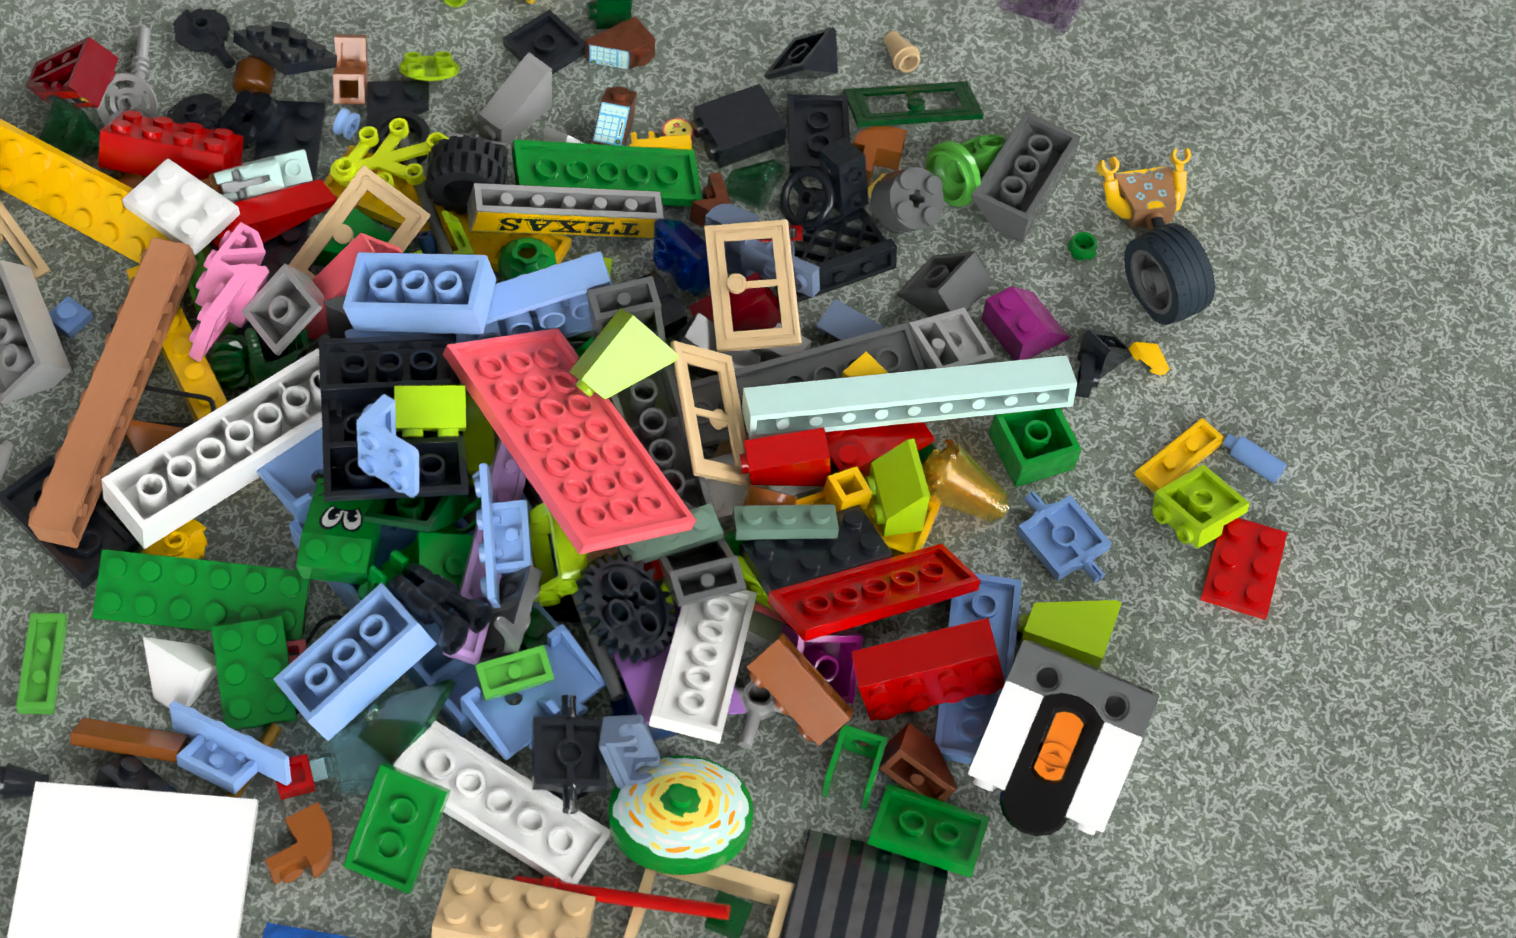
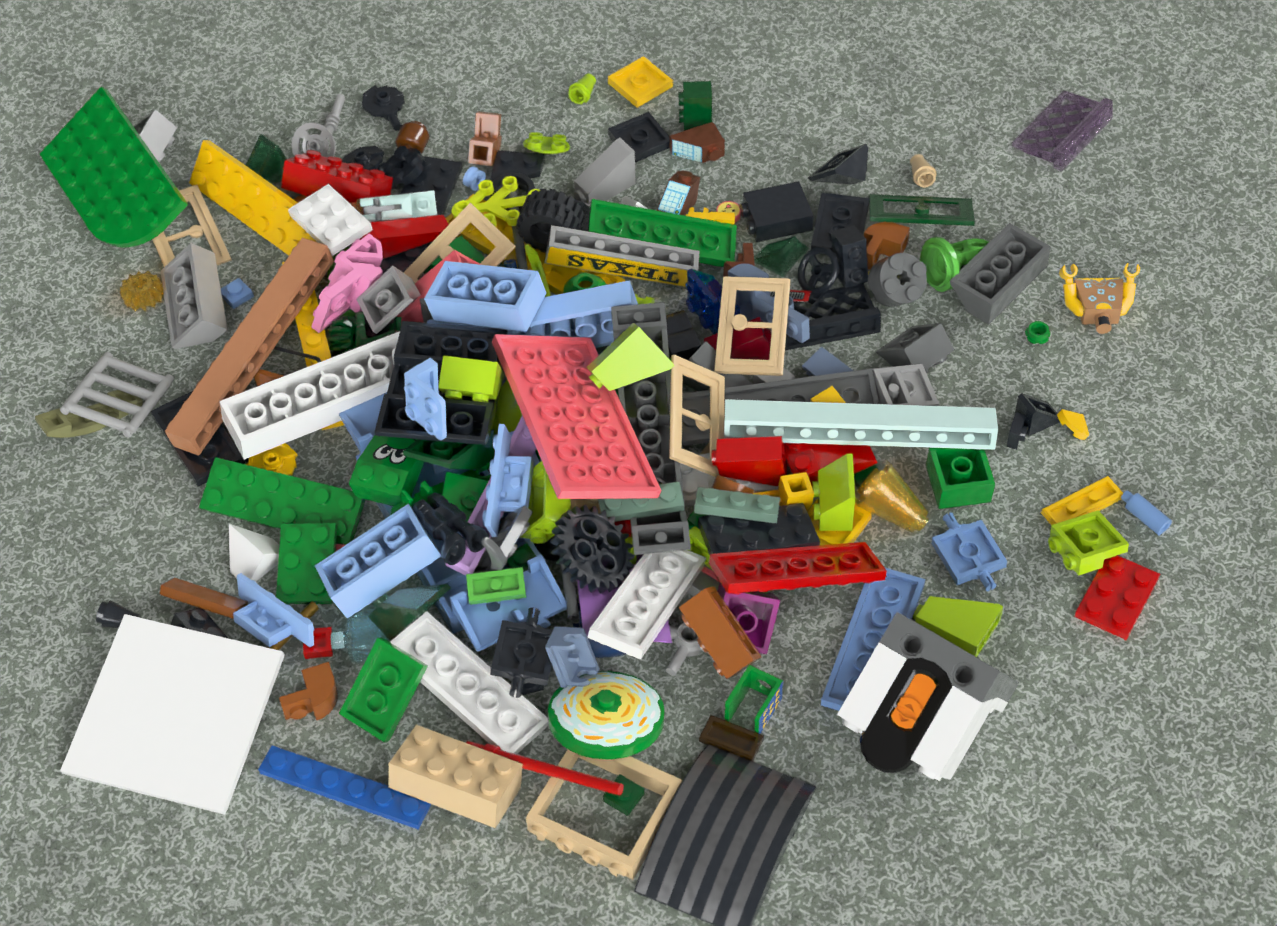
camera: 20 degrees right, 5 degrees down
(42, 663) = (154, 534): bright green plate -> none
(74, 74) = (279, 119): dark red wedge -> none
(284, 48) = (439, 118): black plate -> none
(835, 817) = (731, 738): none -> dark brown tile
(918, 764) = (806, 708): copper slope -> none
(928, 669) = (825, 632): red brick -> none
(928, 830) = (803, 758): green plate -> none
(1022, 323) = (973, 383): magenta slope -> none
(1169, 273) = (1101, 358): black wheel -> none

